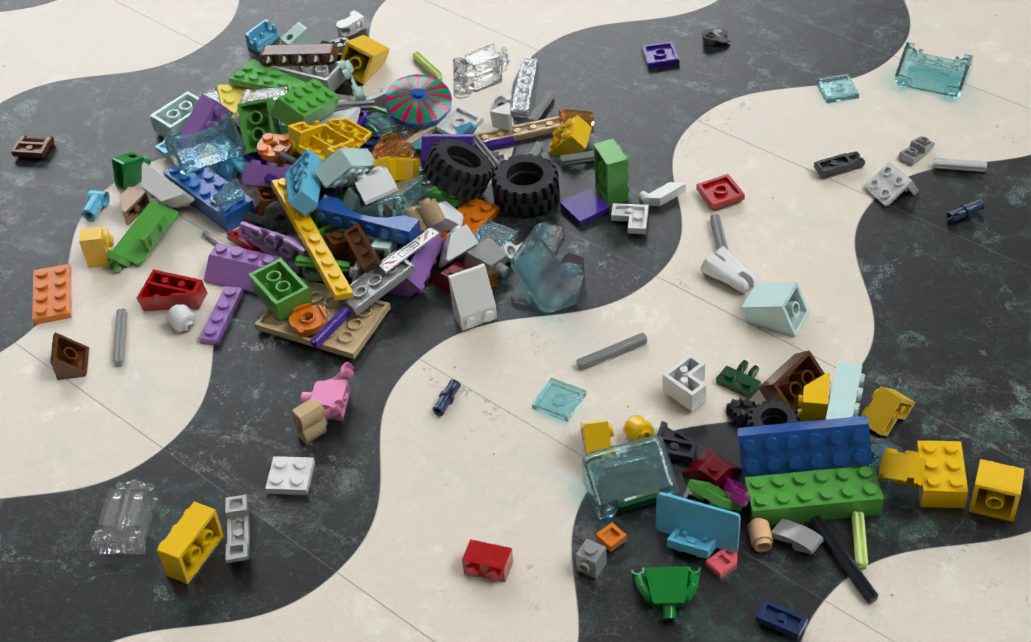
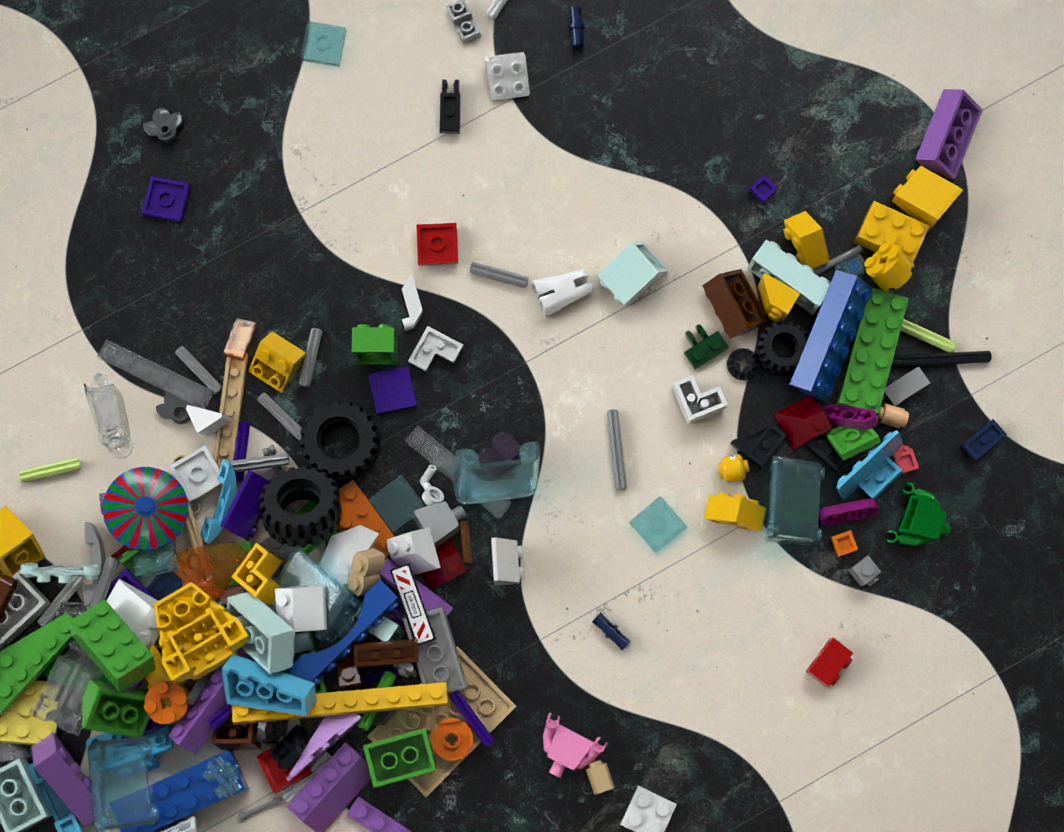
camera: 75 degrees left, 35 degrees up
(653, 539) = (856, 511): none -> magenta beam
(915, 371) = (763, 188): none -> dark purple plate

